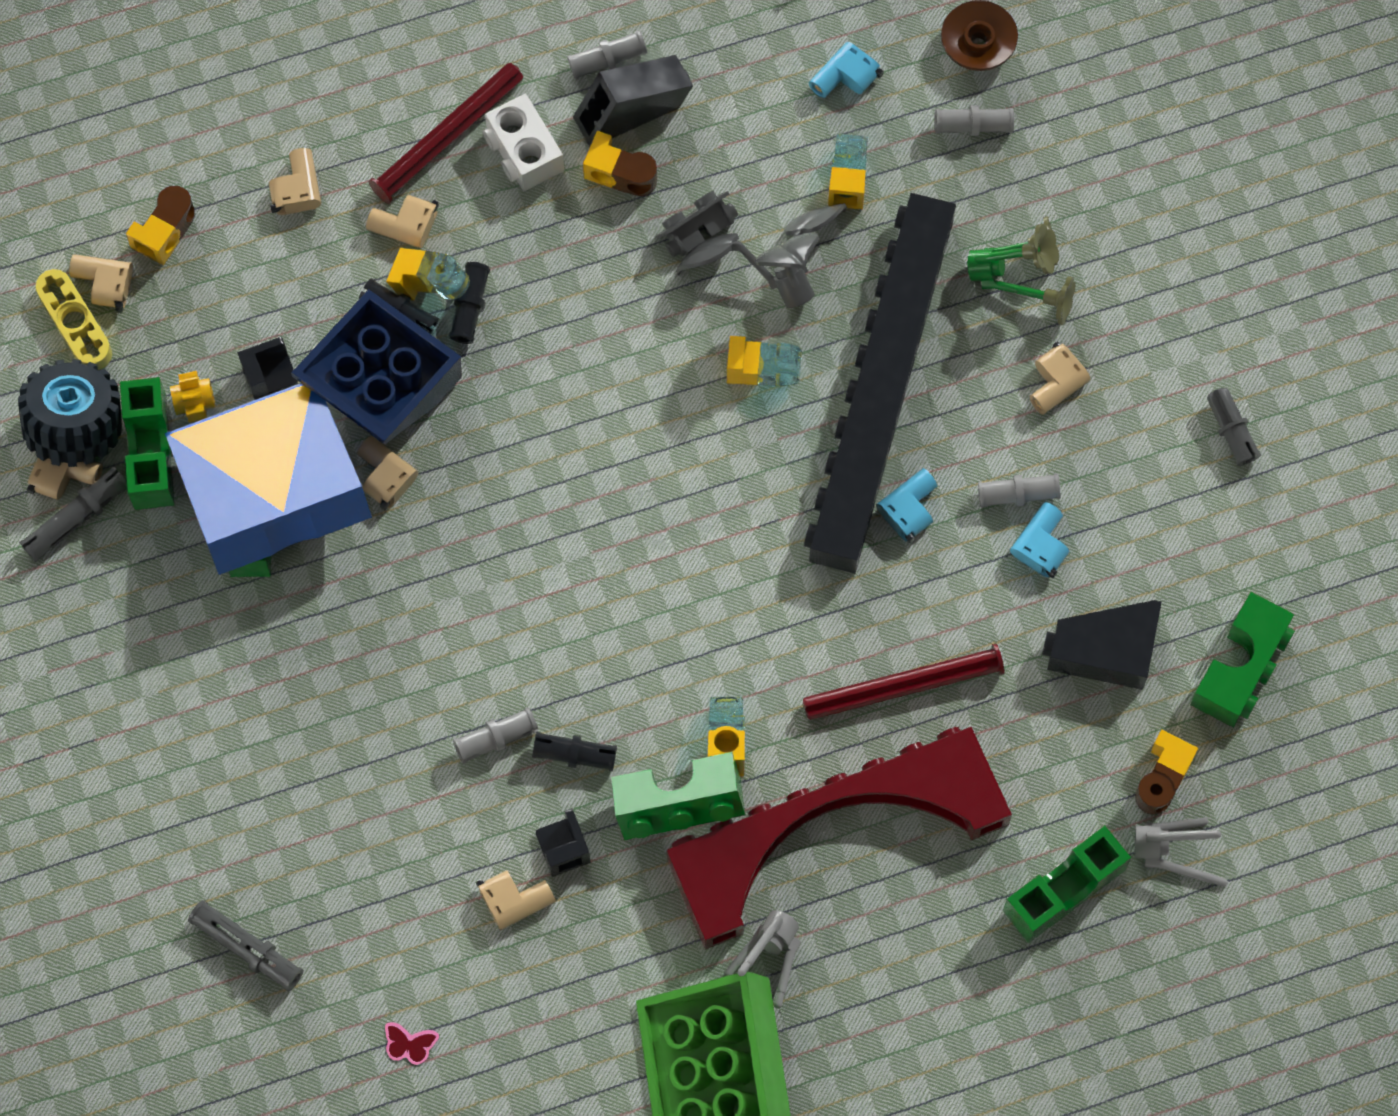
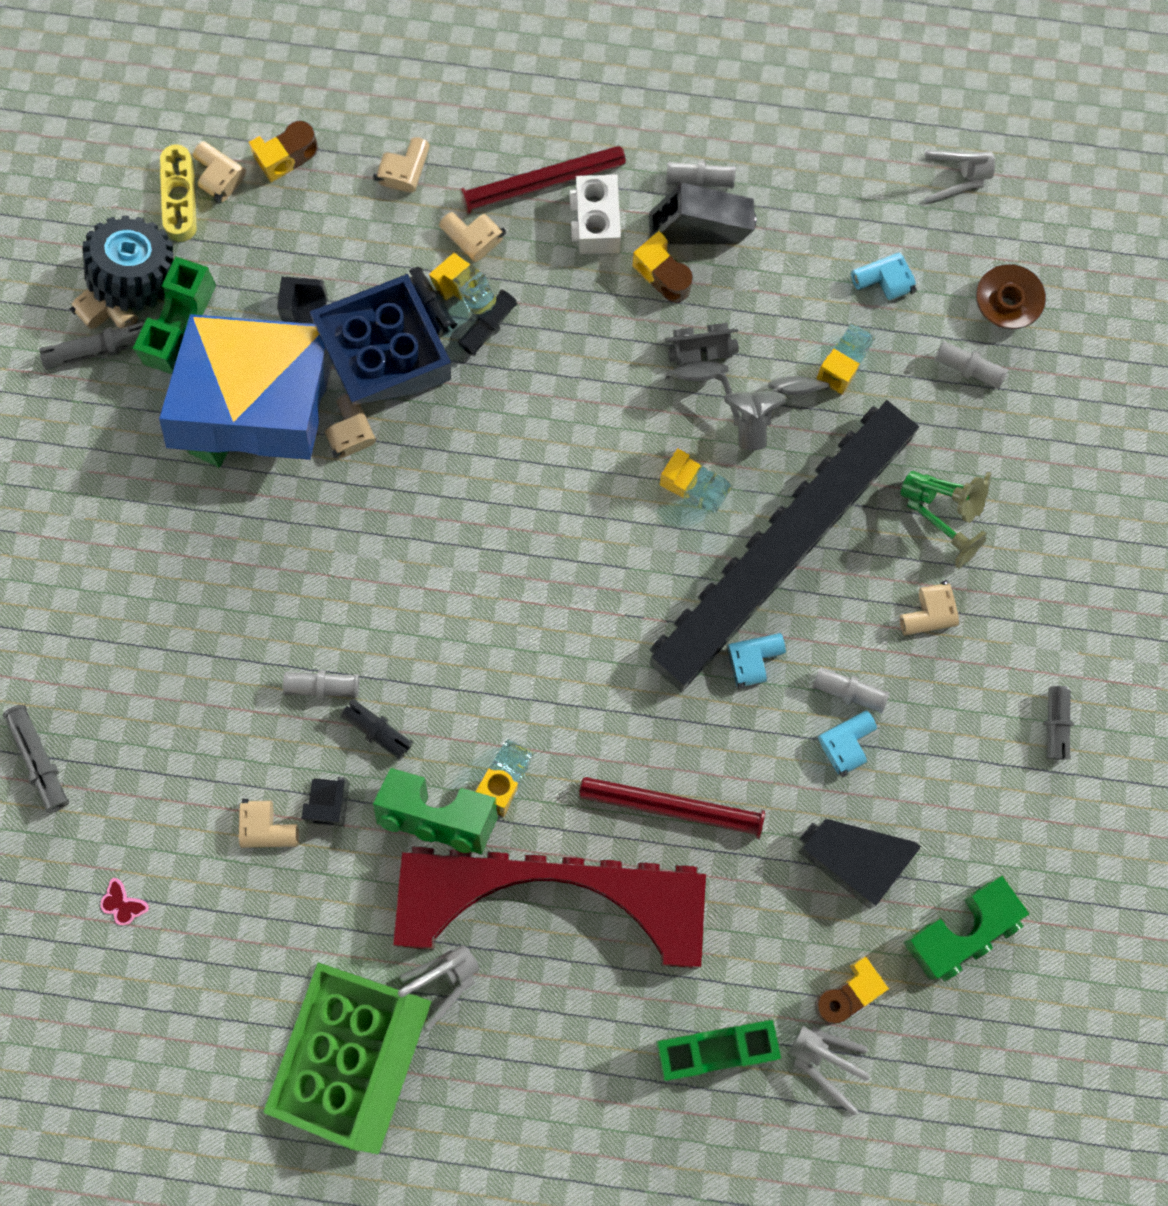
camera: 25 degrees right, 5 degrees up
(192, 396) = (232, 295): yellow gear -> none

